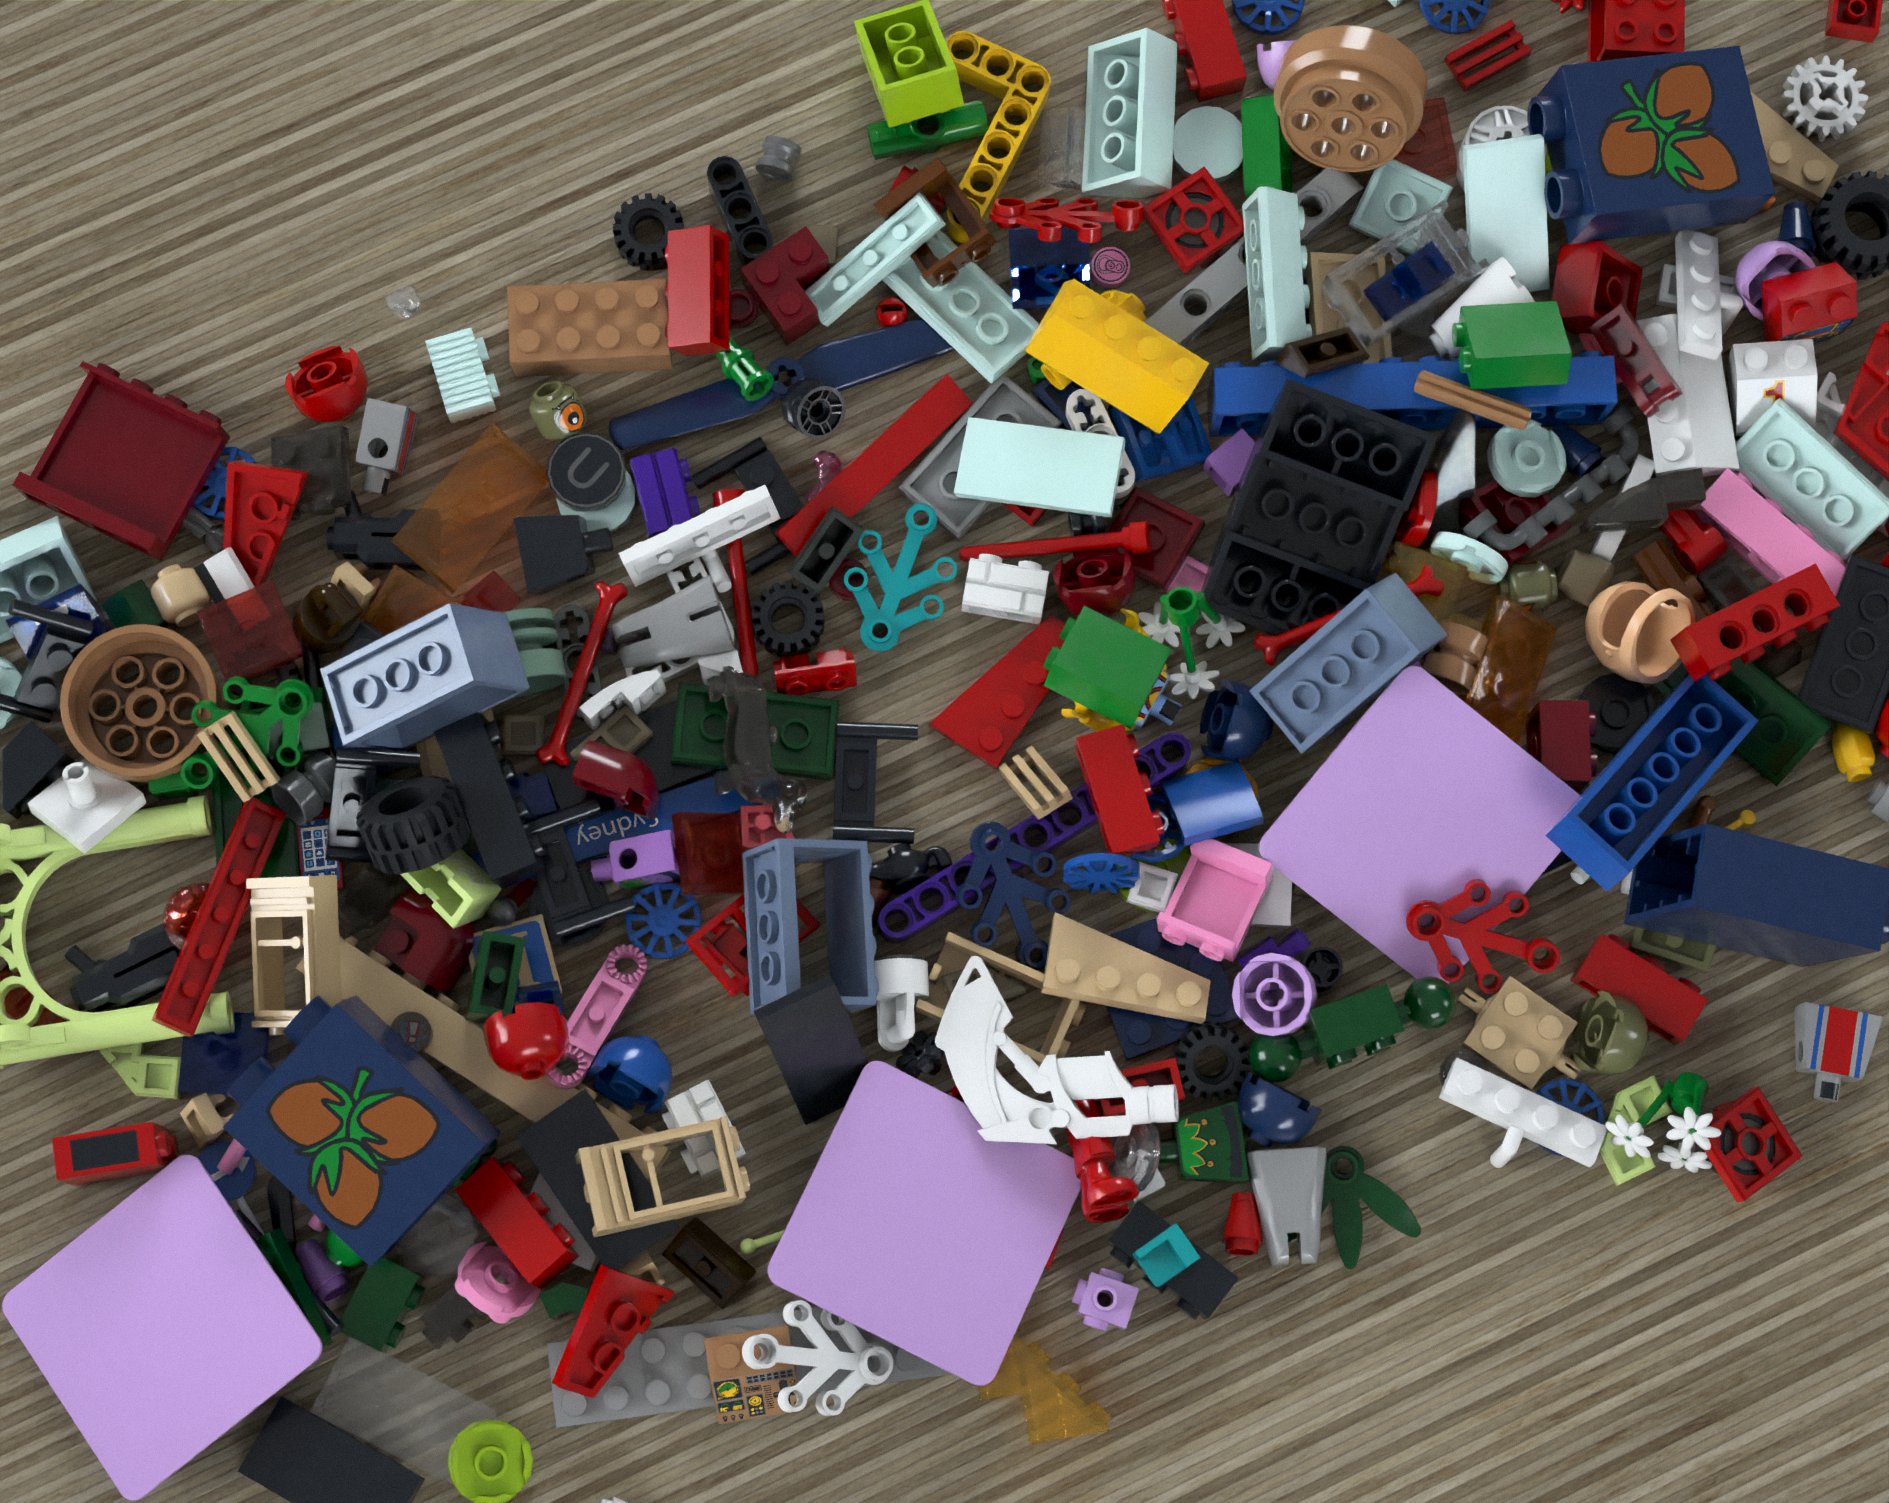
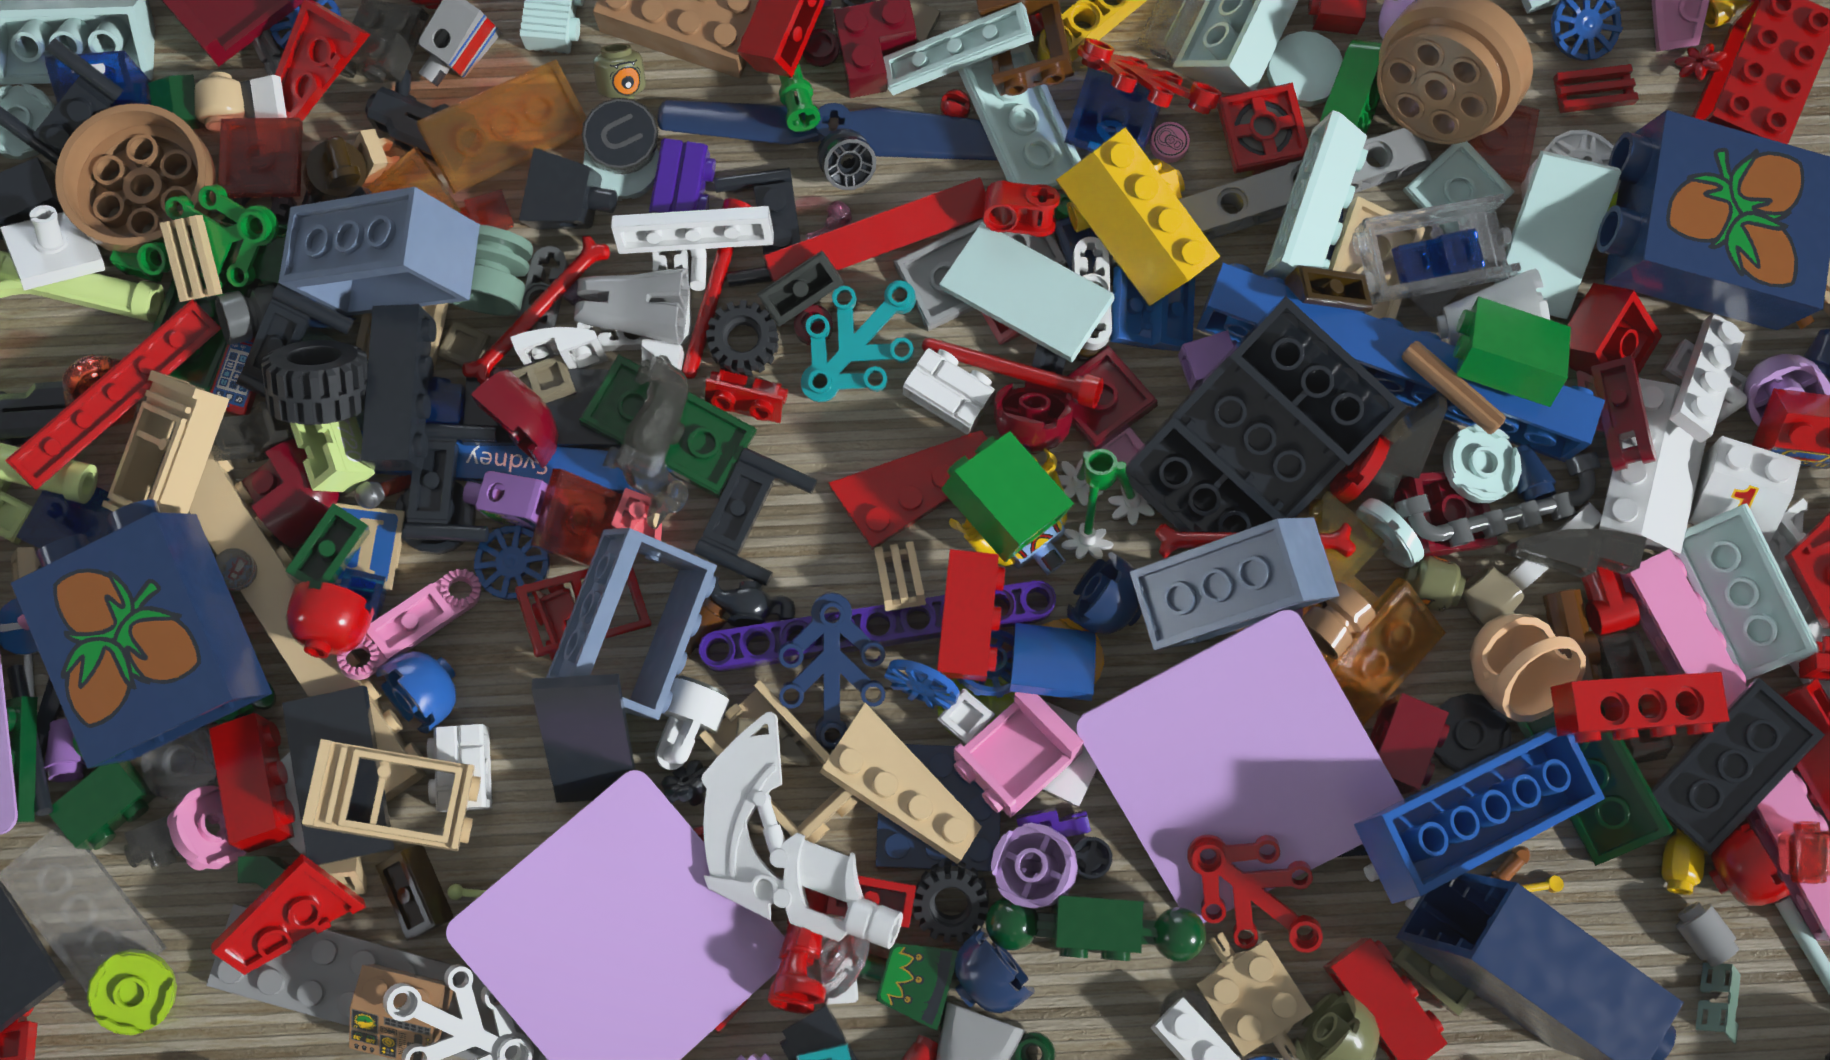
camera: 25 degrees right, 0 degrees up
(997, 390) = (1017, 208): none -> red piece

